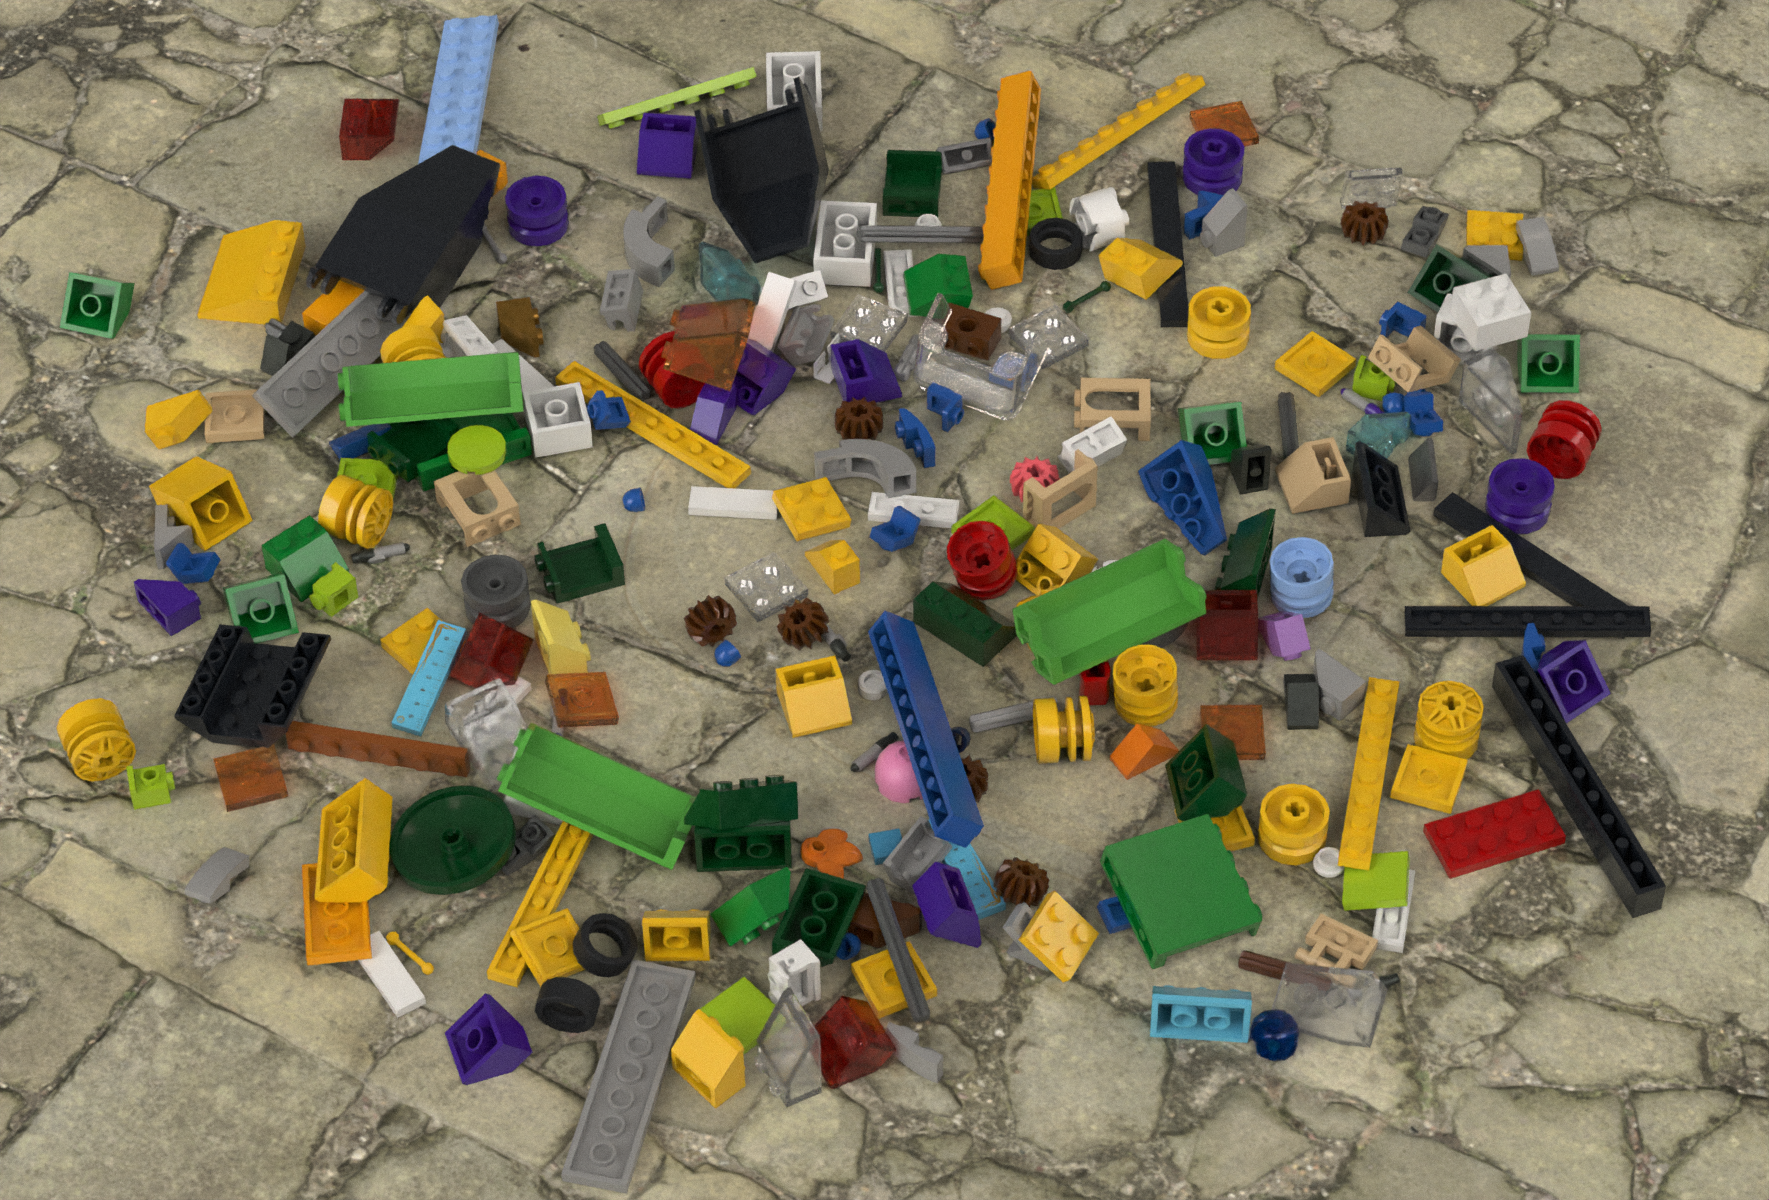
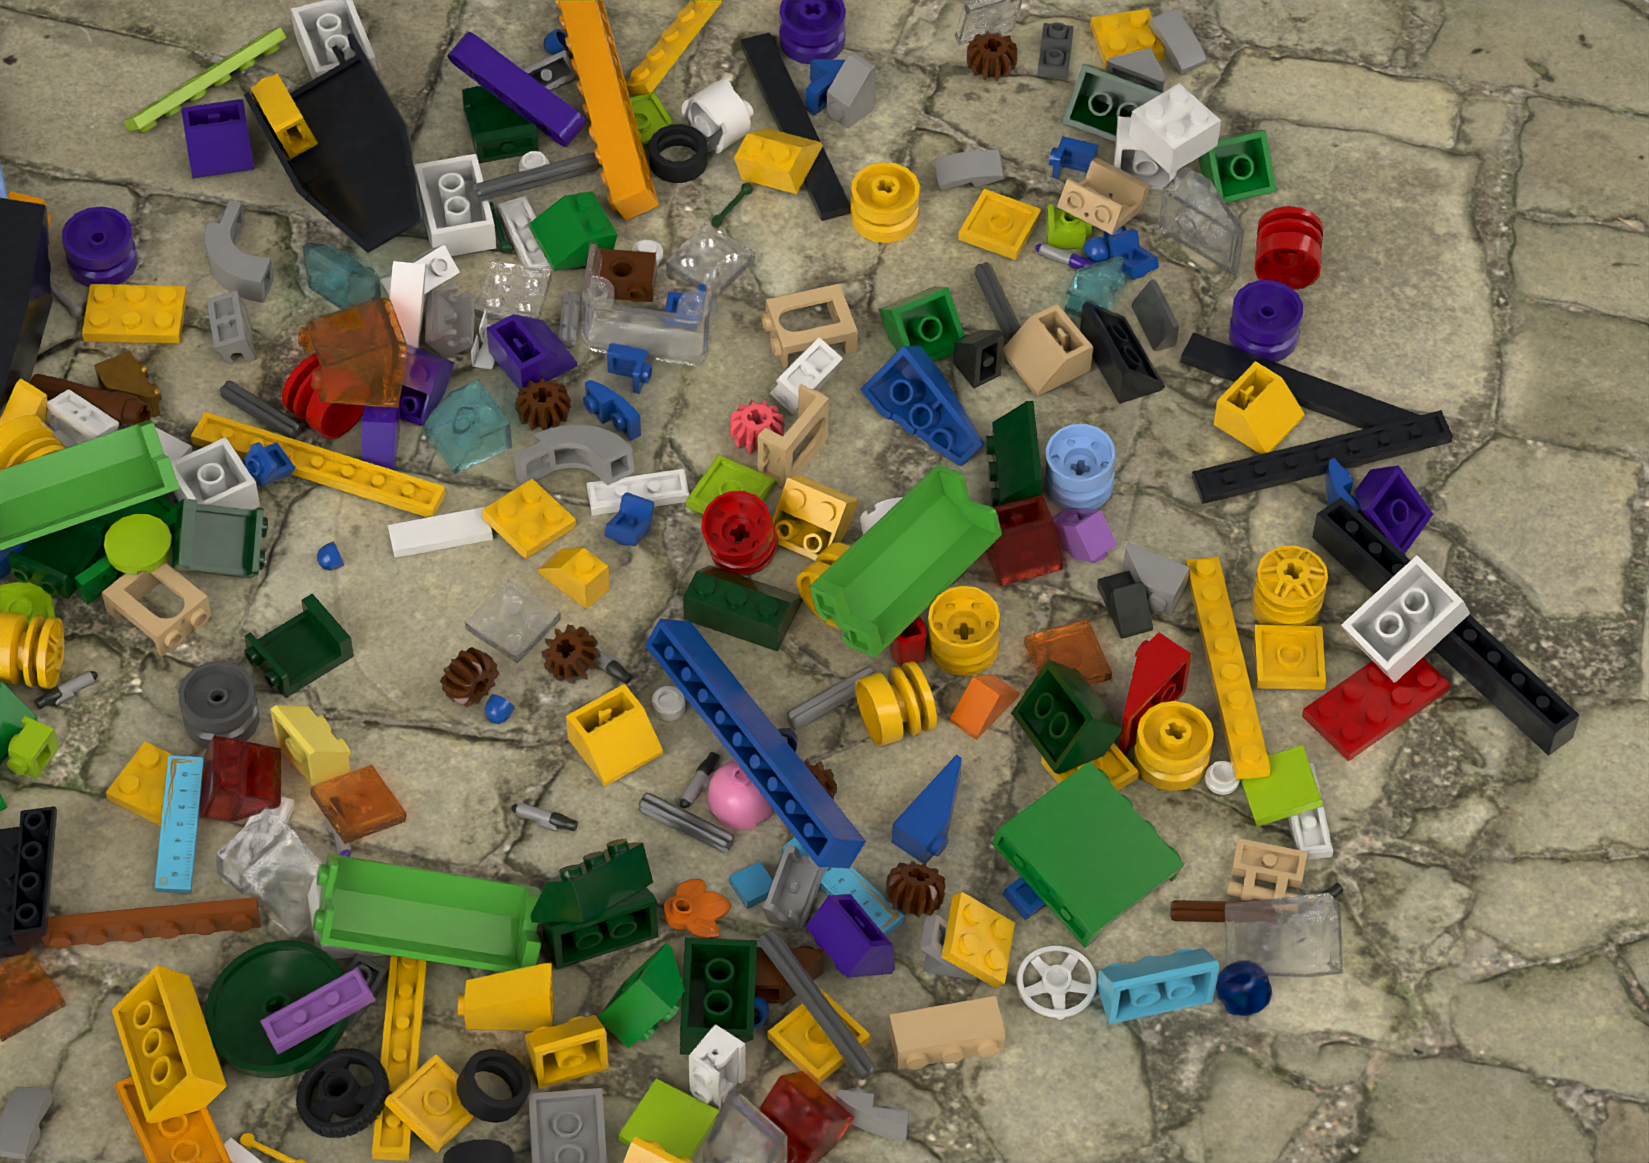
camera: 20 degrees left, 5 degrees up
(480, 919) = (334, 1081): none -> black wheel
(481, 846) = (317, 1010): none -> medium lavender tile
(501, 337) = (120, 406): none -> reddish brown piece
(544, 462) = (218, 539): none -> panel
(548, 271) = (134, 313): none -> yellow plate
(645, 882) = (509, 1000): none -> yellow slope
(725, 137) = (283, 115): none -> yellow slope
(733, 750) = (545, 819): none -> piece
(789, 424) = (468, 427): none -> clear light blue slope
(850, 782) = (686, 822): none -> dark grey axle
(932, 159) = (516, 89): none -> dark purple beam
(1003, 1004) = (946, 1033): none -> tan brick
(1057, 830) = (926, 822): none -> blue slope
(1116, 989) = (1057, 982): none -> white wheel
(1297, 759) = (1157, 677): none -> red slope
(1307, 310) = (976, 166): none -> light grey slope
(1536, 766) = (1405, 618): none -> white brick

